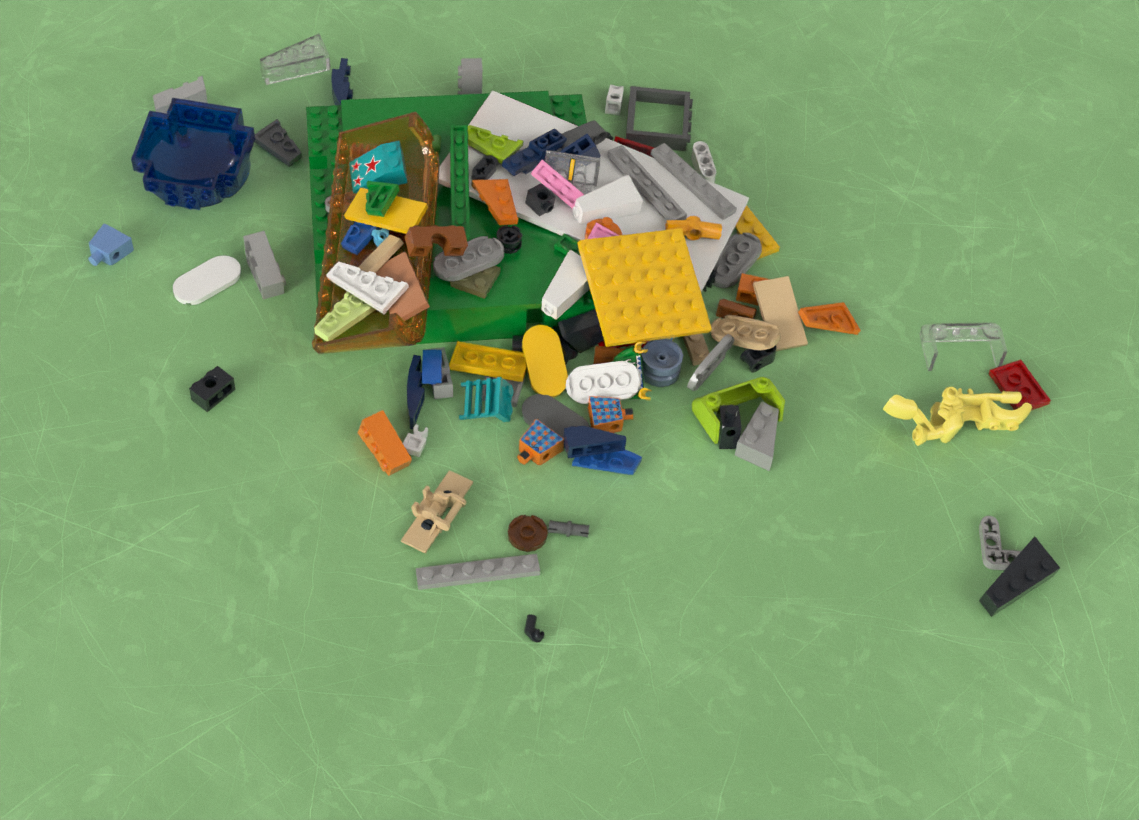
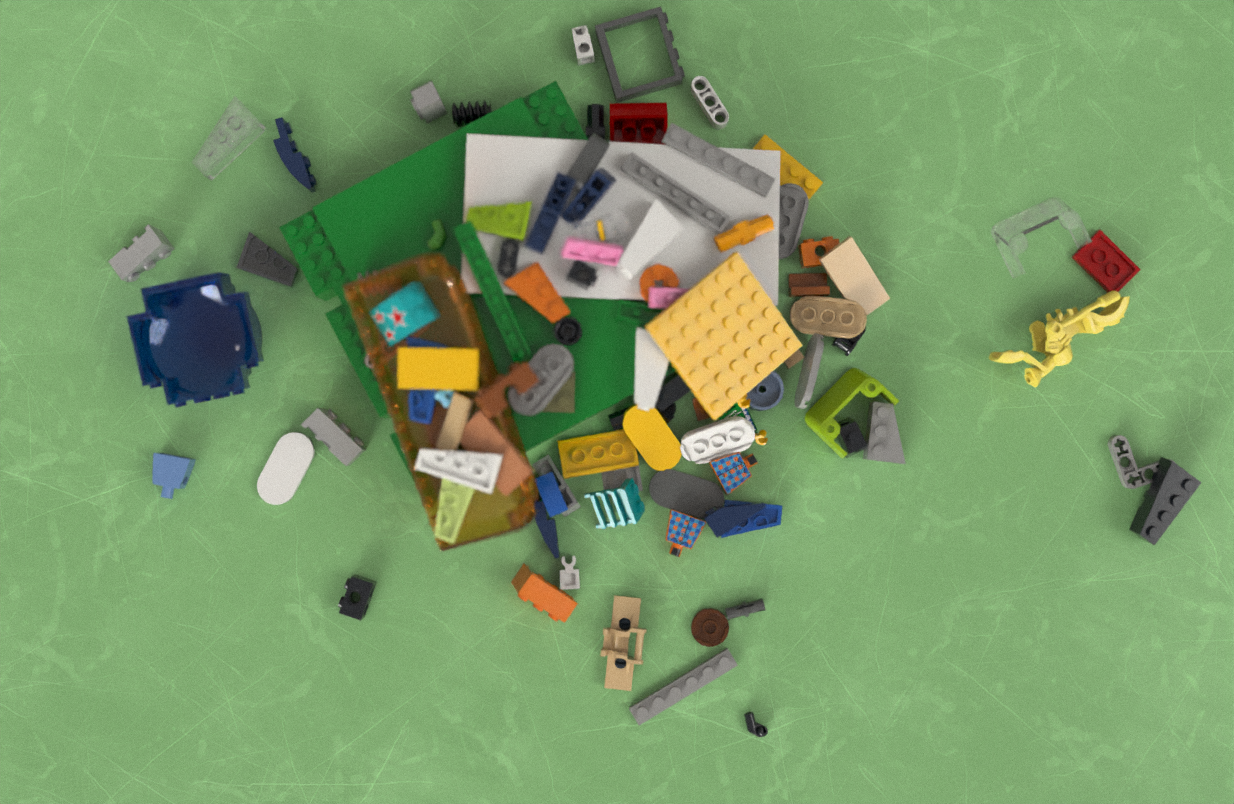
camera: 20 degrees left, 35 degrees up
(380, 197) = (427, 362): green wing -> none
(830, 317) = (902, 260): orange wing -> none

